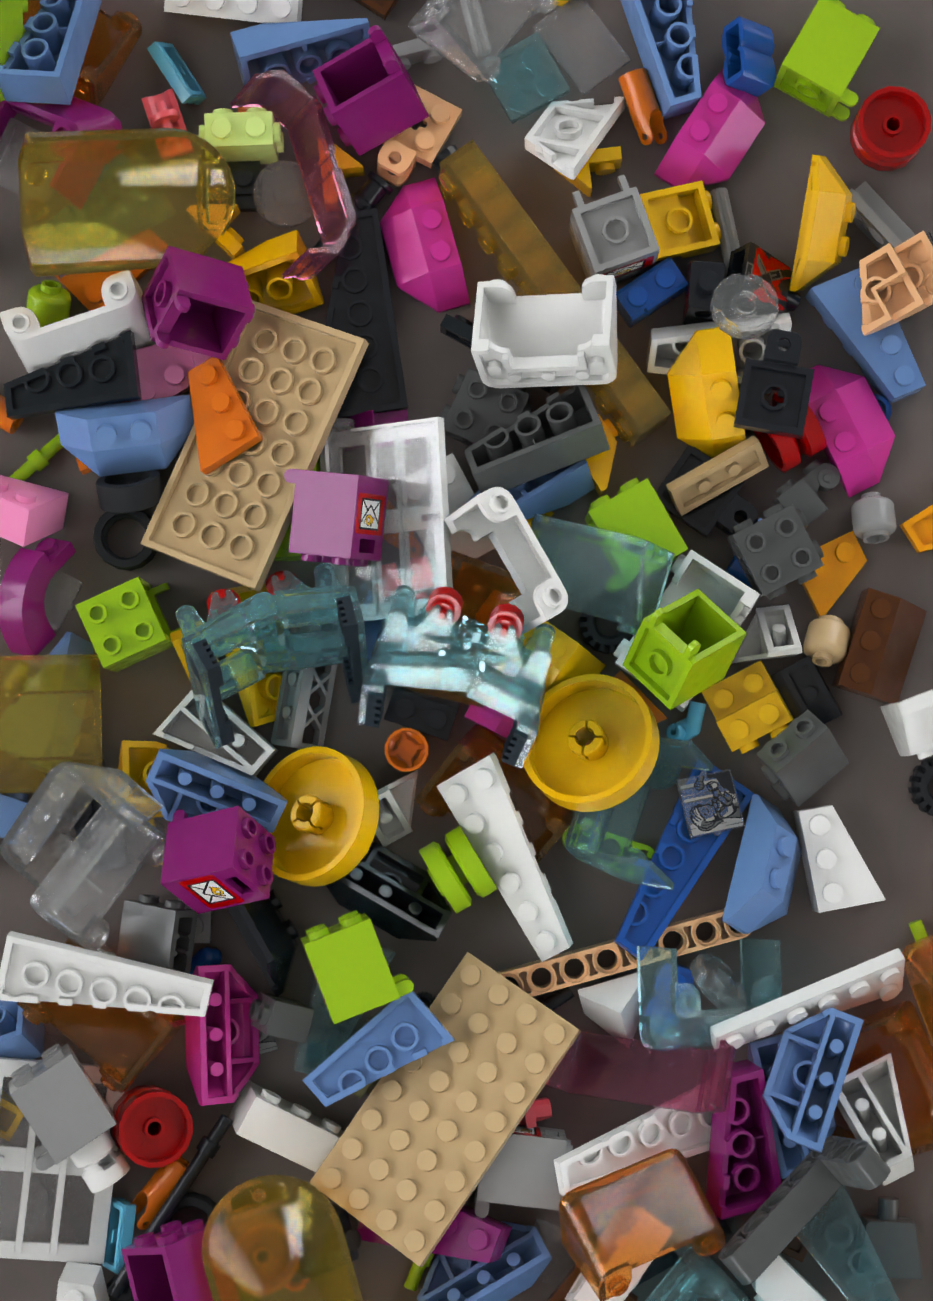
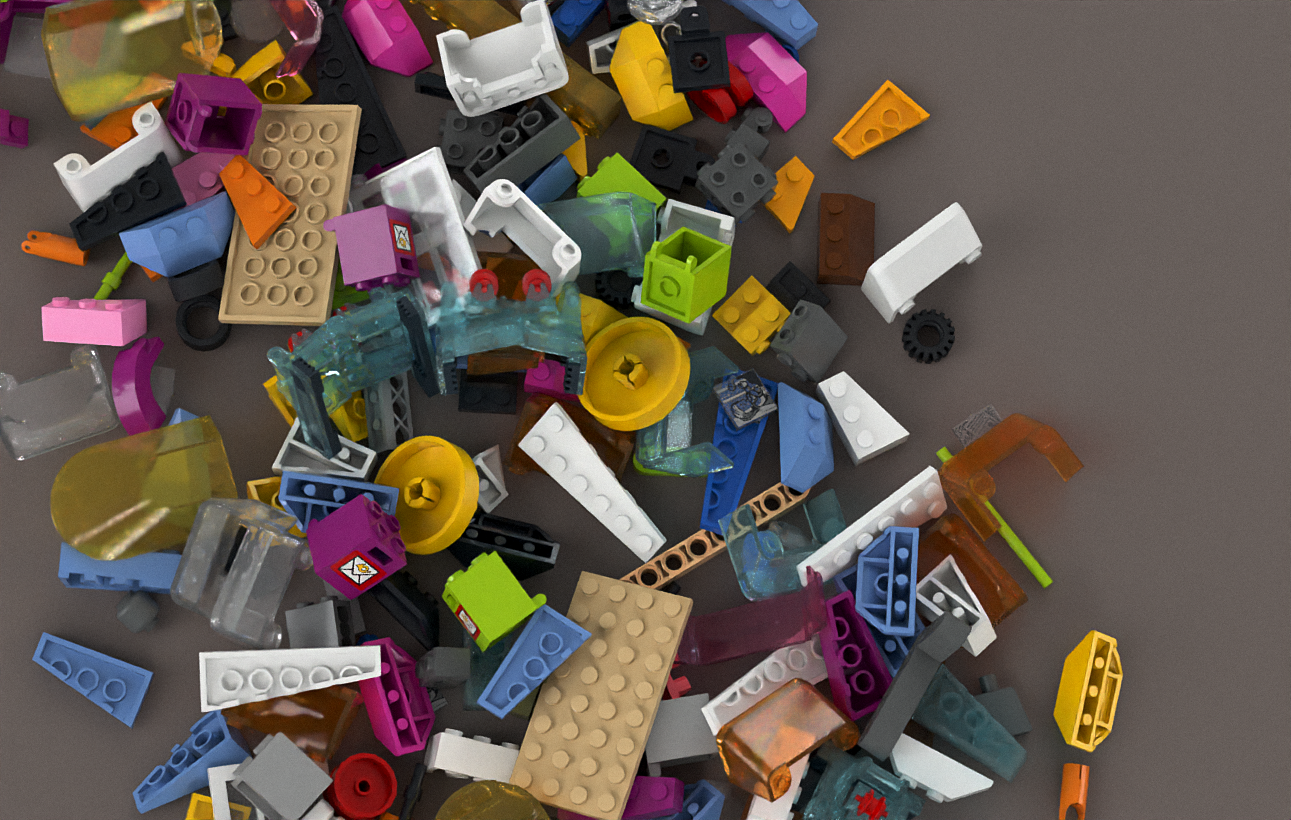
camera: 25 degrees left, 10 degrees down
(49, 302) = (89, 147): lime head -> none
(126, 624) = (225, 386): lime container -> none
(406, 750) = (484, 426): orange wheel -> none
(456, 870) = (555, 507): lime wheel -> none
(613, 1005) = (714, 584): white slope -> none
(689, 726) = (712, 337): medium azure arm -> none
(717, 475) = (673, 139): tan plate -> none
(770, 636) = (755, 257): white slope -> none
(826, 640) = (800, 245): tan head -> none
(873, 518) = (809, 140): light grey head -> none

